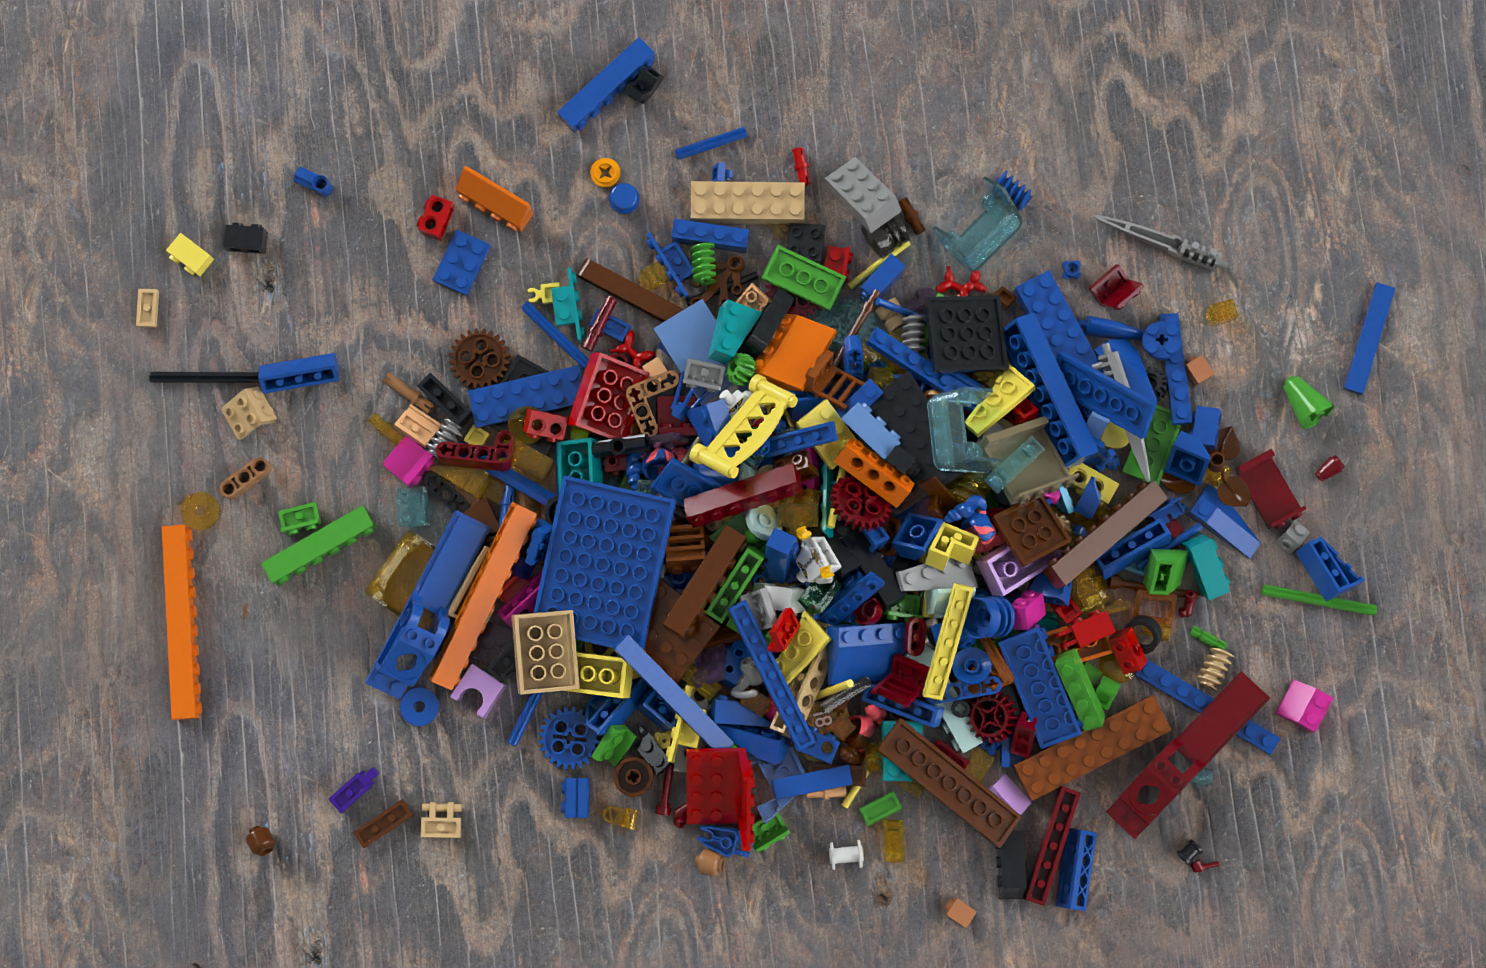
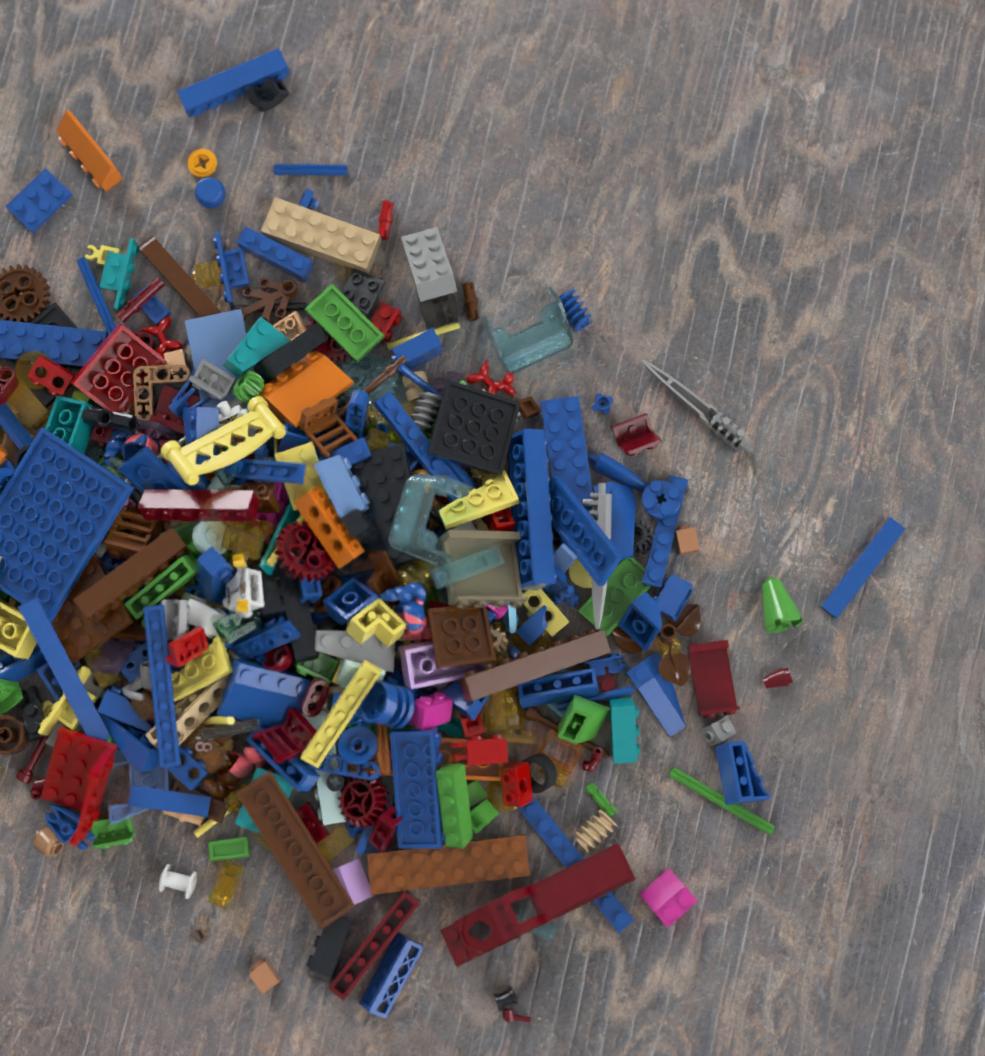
camera: 20 degrees right, 0 degrees up
(440, 218) = (34, 153): red brick -> none
(702, 264) = (255, 277): bright green piece -> none
(1222, 312) = (730, 493): clear yellow brick -> none

